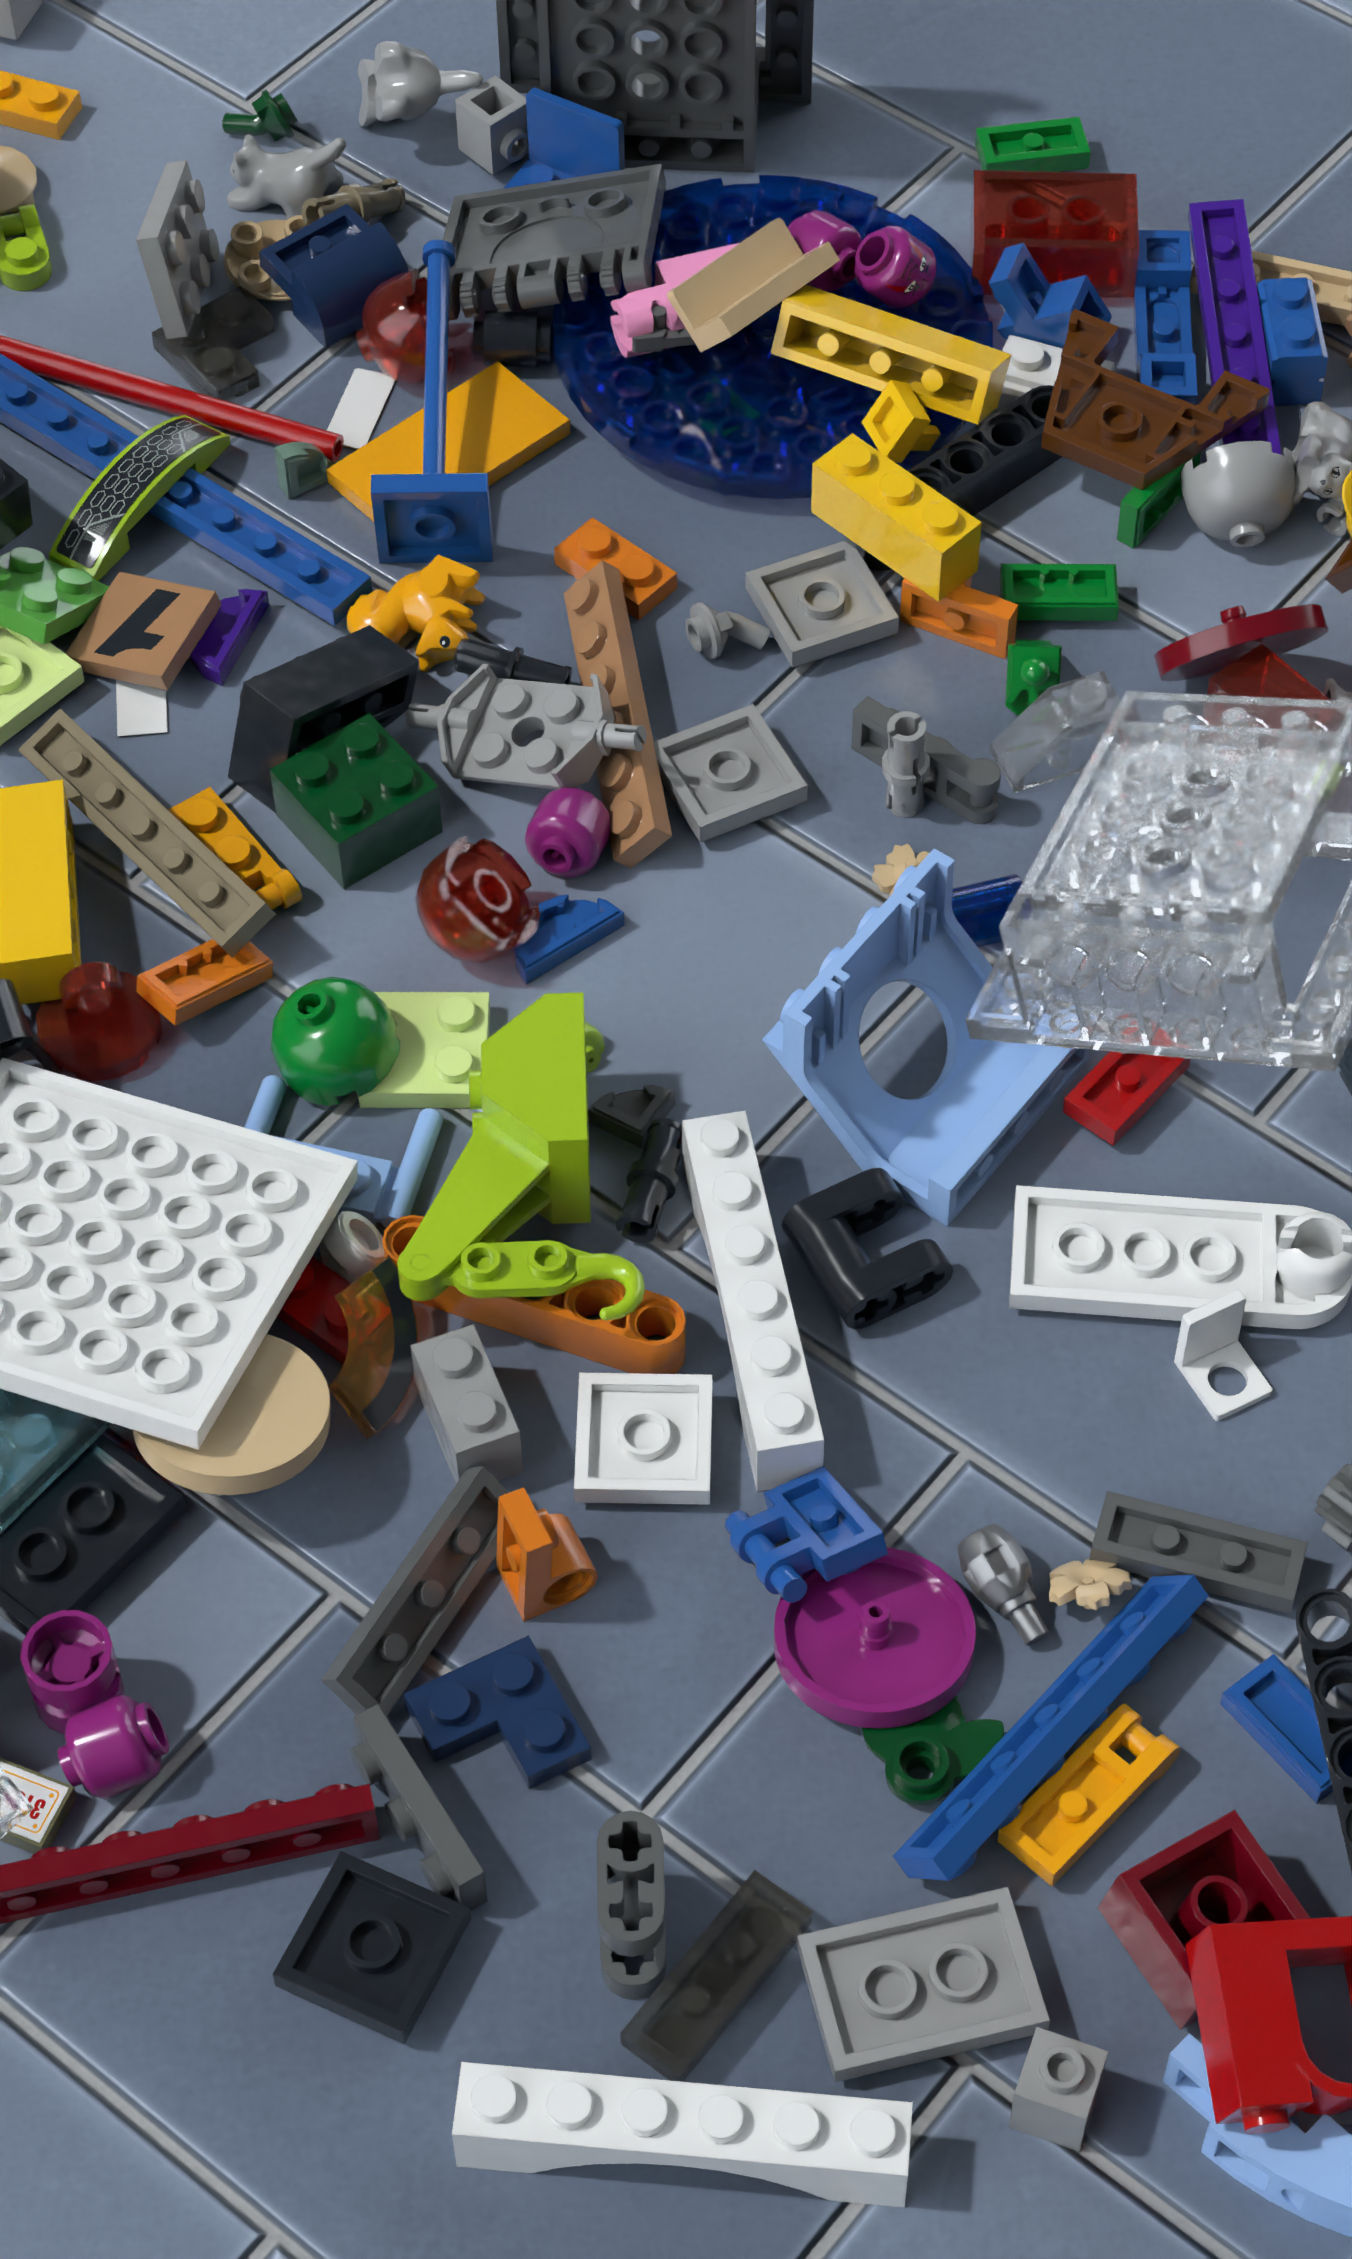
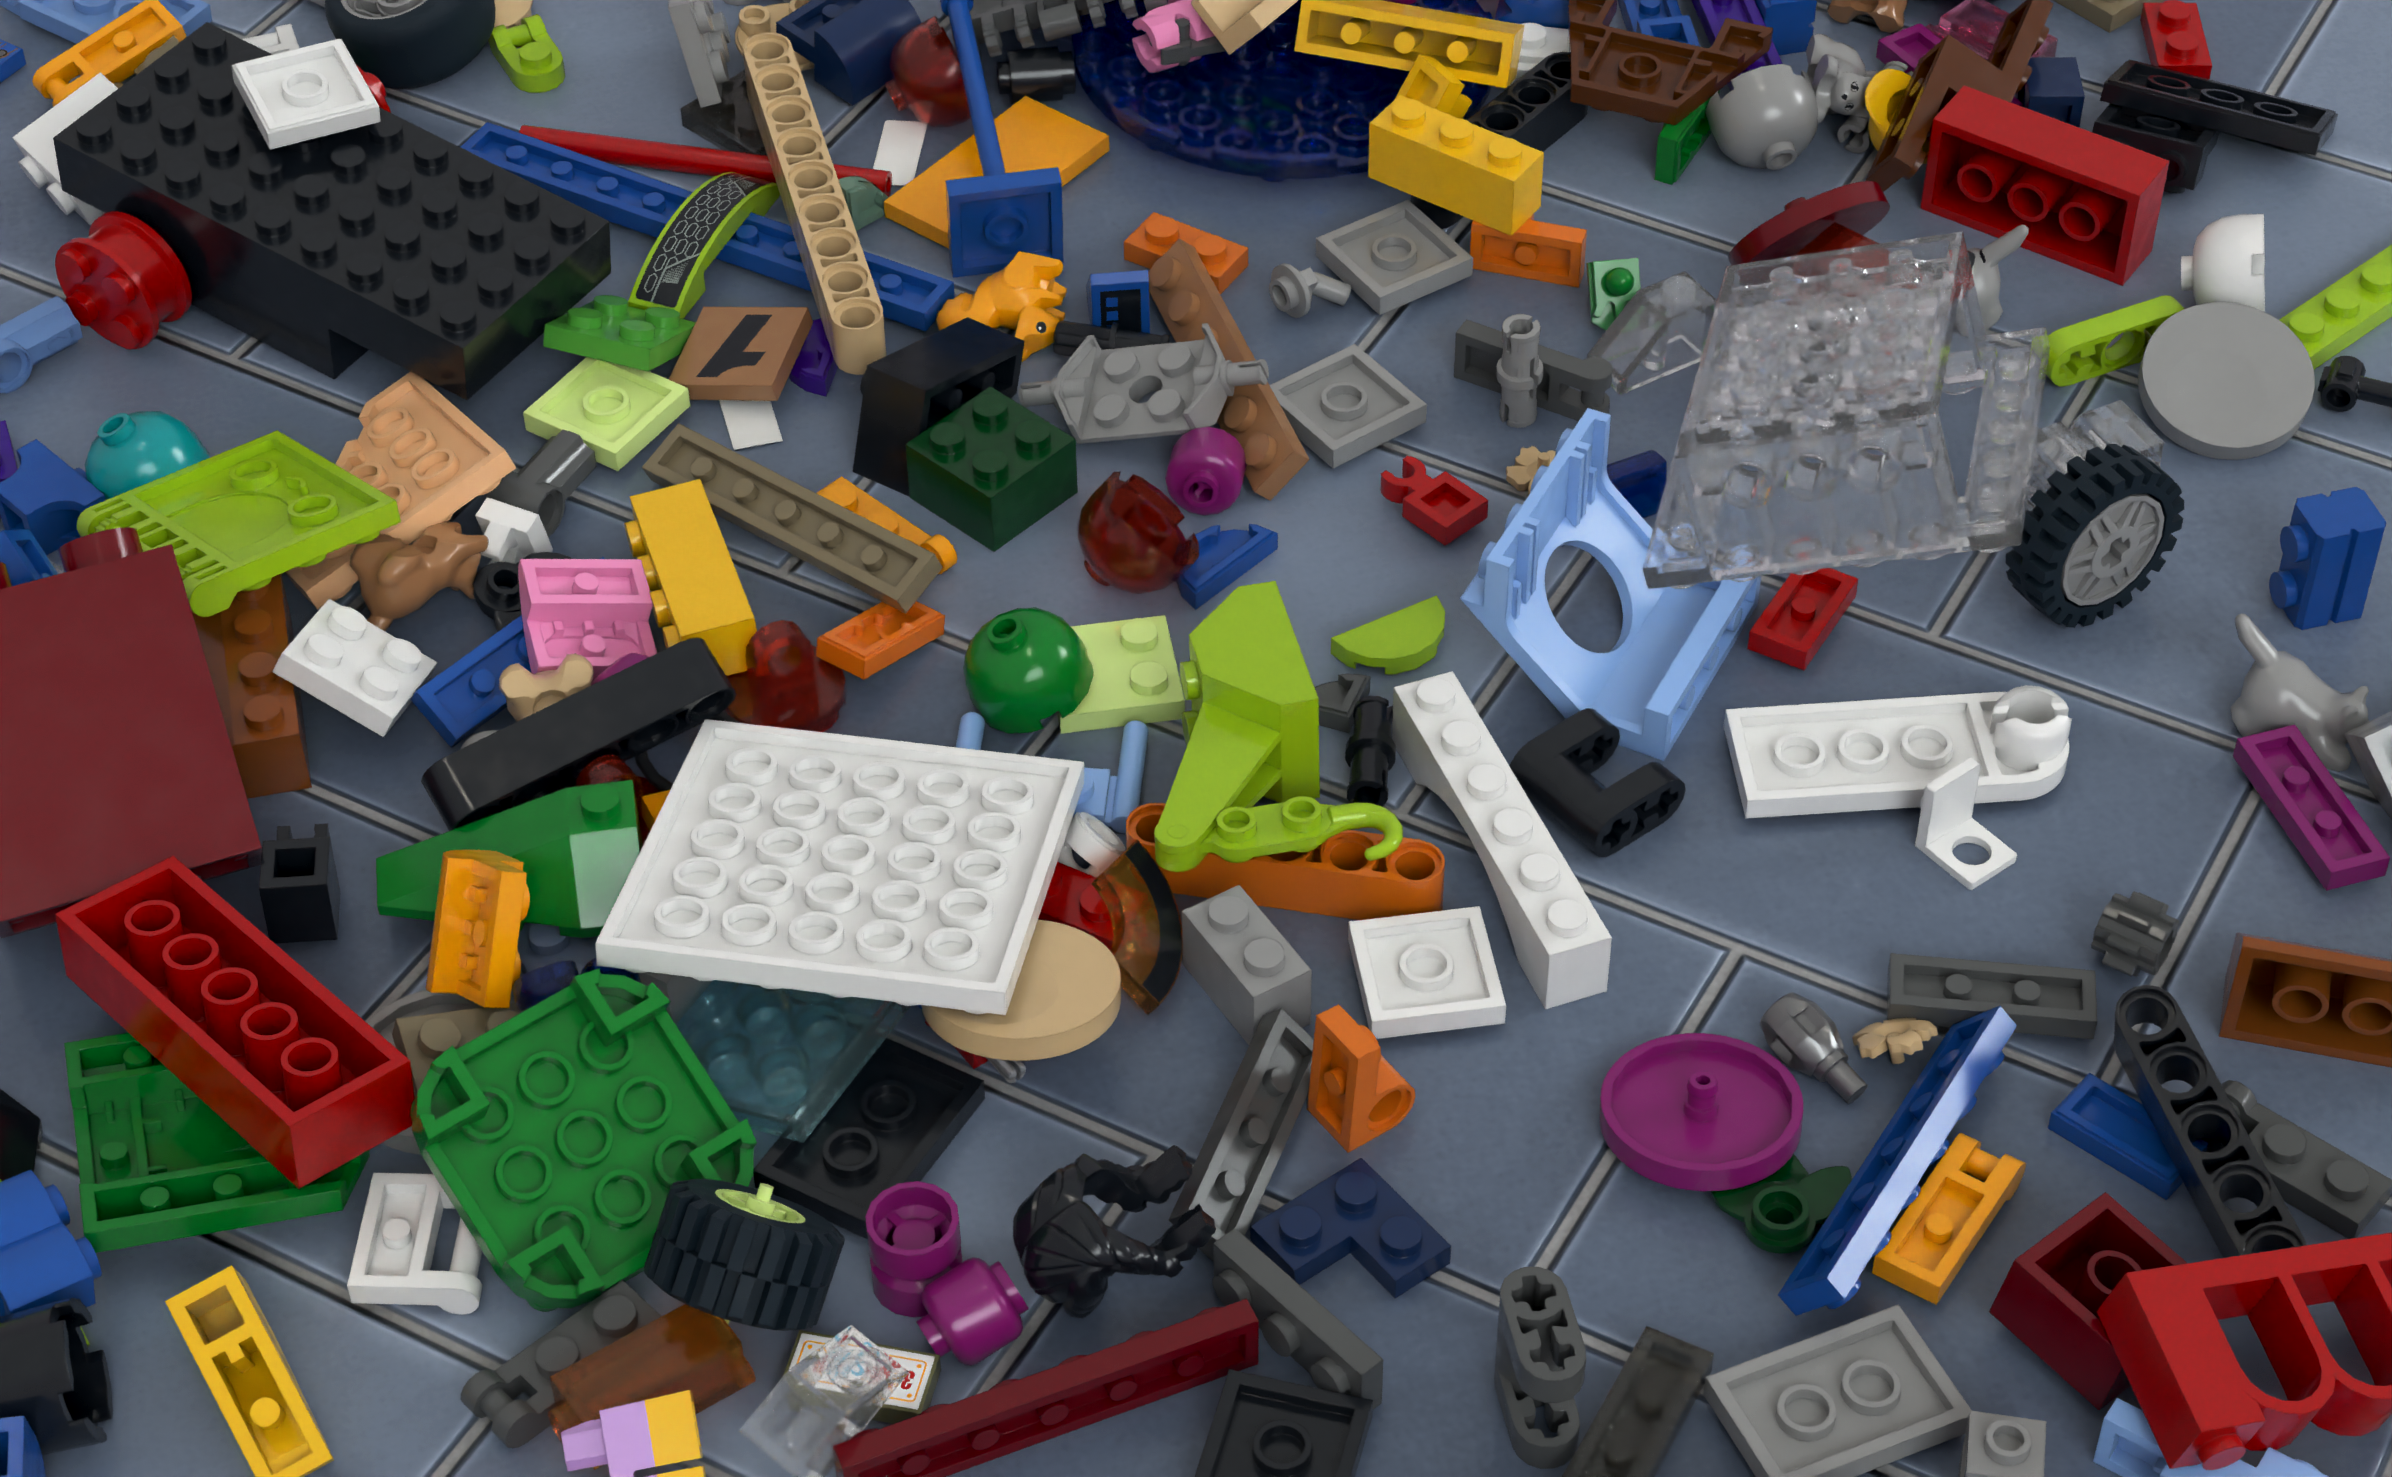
camera: 10 degrees left, 10 degrees down
(211, 1709) = (1070, 1249): none -> black hair
(247, 472) = (814, 203): none -> tan beam
(530, 623) = (1119, 299): none -> blue slope
(712, 1052) = (1394, 641): none -> lime tile
(790, 903) = (1437, 505): none -> red plate
(824, 1530) = (1609, 1023): blue plate -> none
(1061, 591) = (1621, 221): green plate -> none

